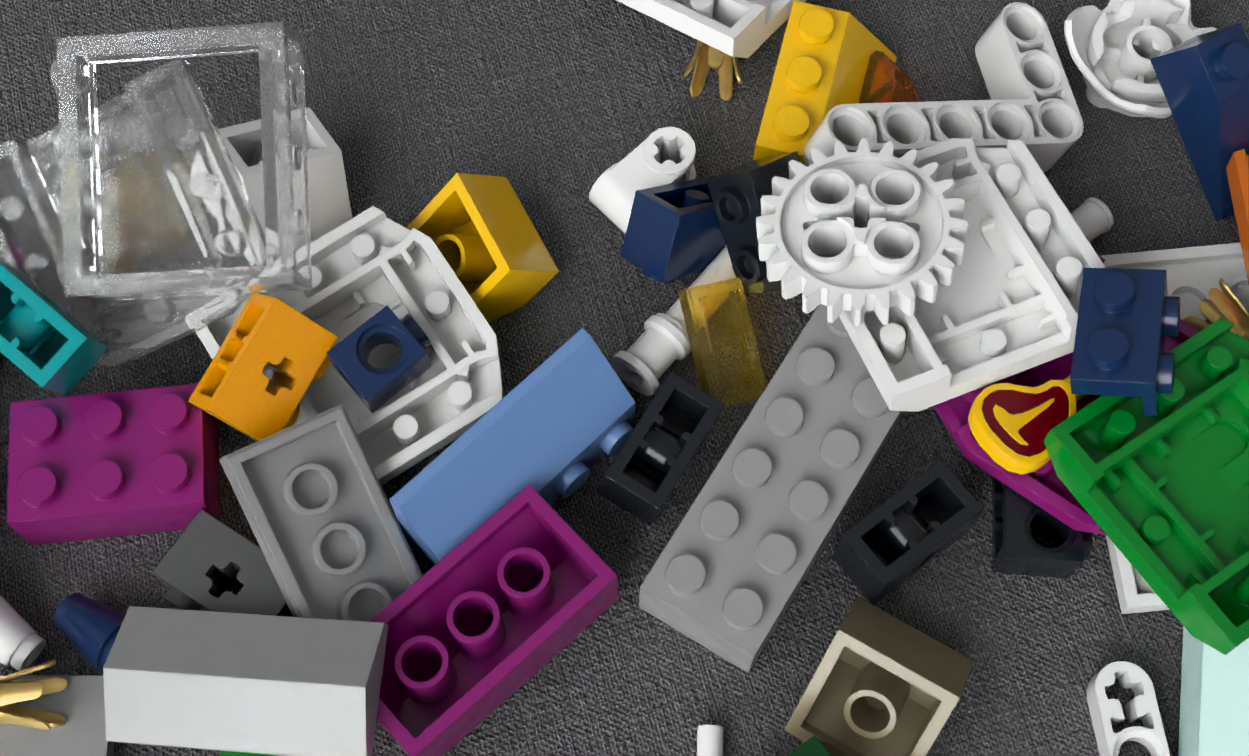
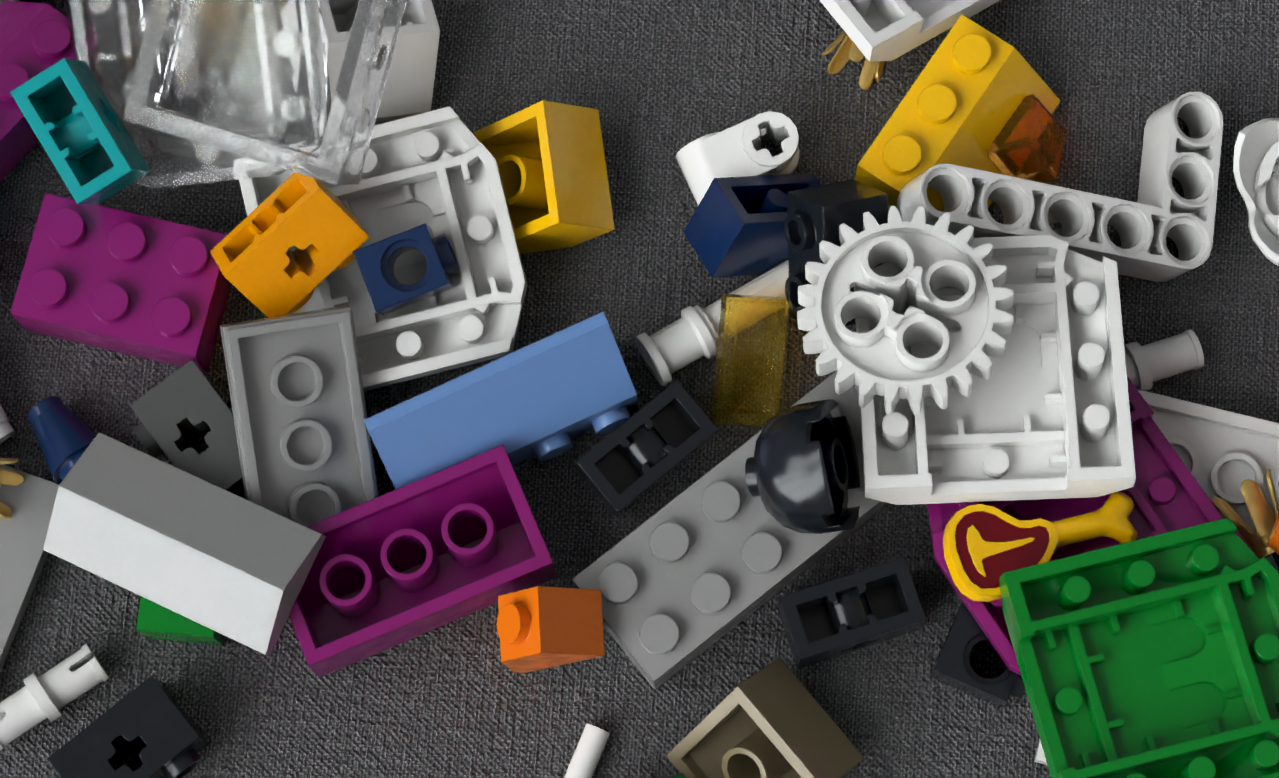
camera: 25 degrees right, 10 degrees up
(637, 638) = (549, 627): none -> orange slope
(823, 404) = (805, 469): none -> black cylinder
(1124, 334) = (1110, 509): dark blue bracket -> none

